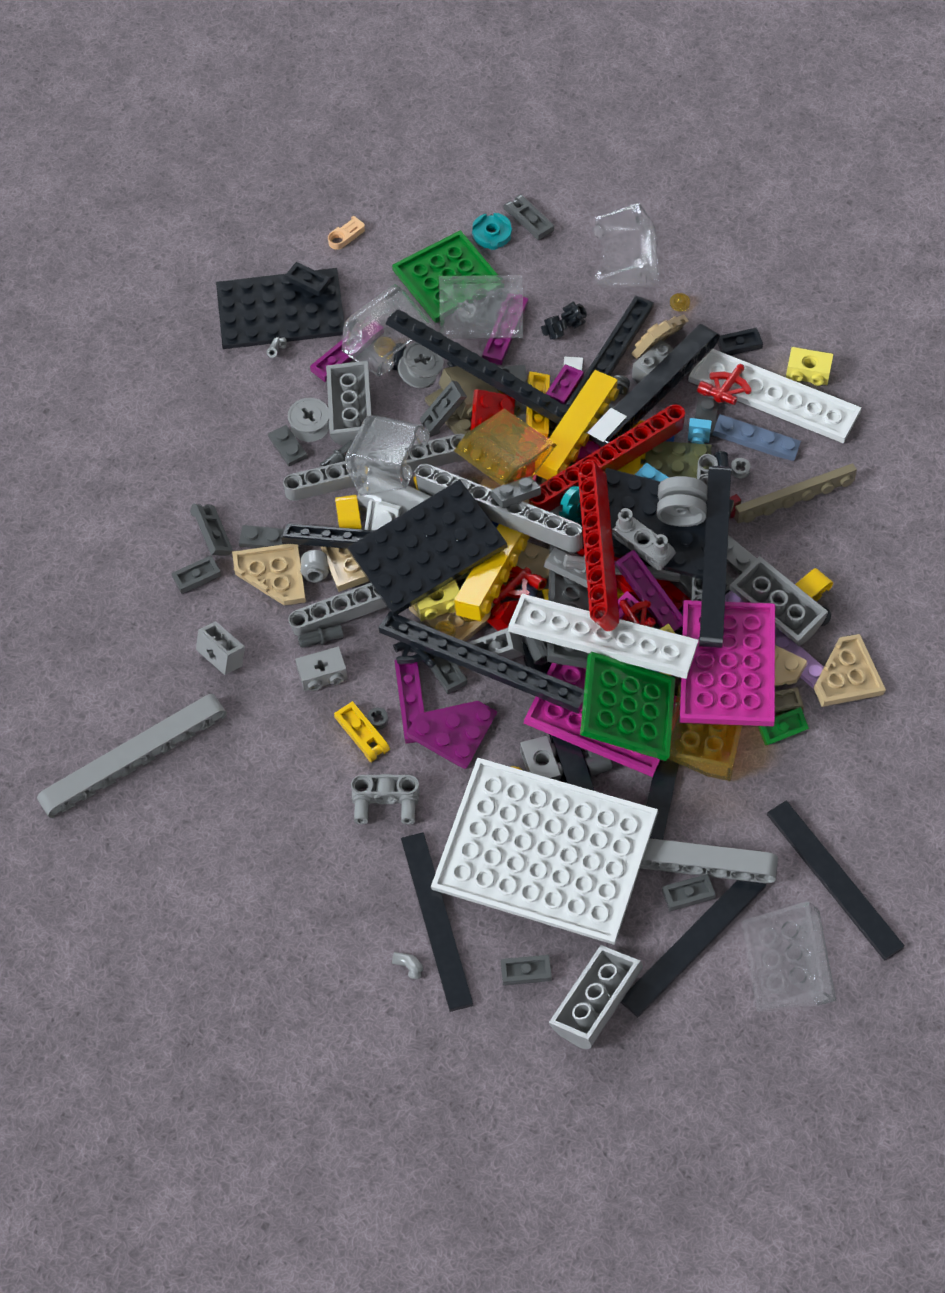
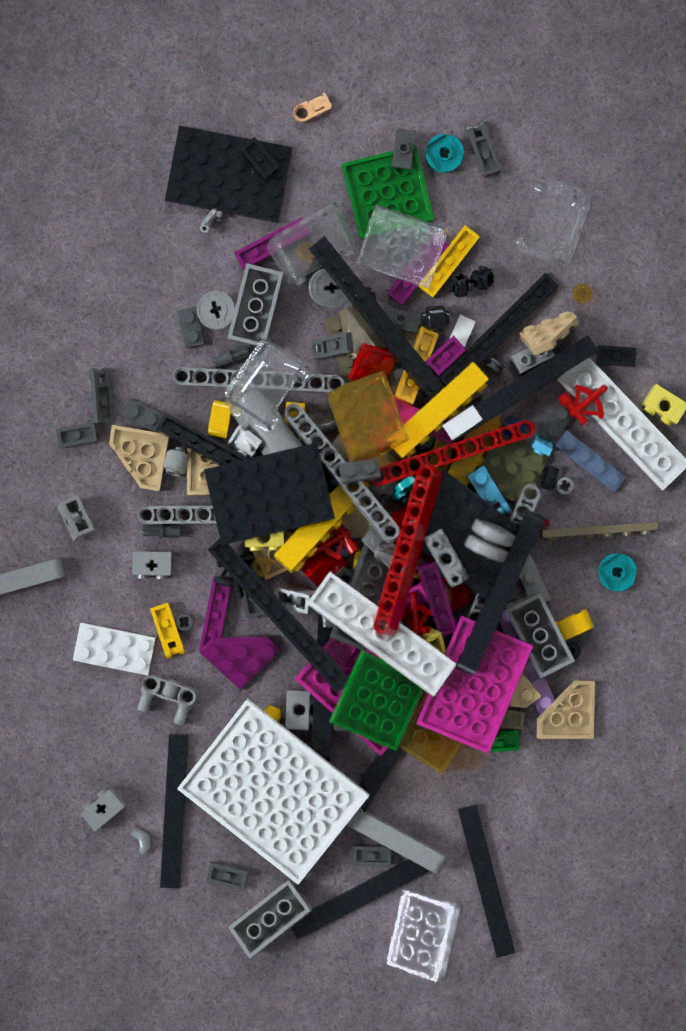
camera: 15 degrees right, 30 degrees up
(306, 770) = (114, 648): none -> white plate
(348, 952) = (97, 818): none -> light grey brick
(450, 234) = (403, 149): none -> dark grey plate
(535, 312) = (451, 259): none -> yellow plate
(540, 360) = (435, 318): none -> black head
(833, 538) = (627, 574): none -> teal plate

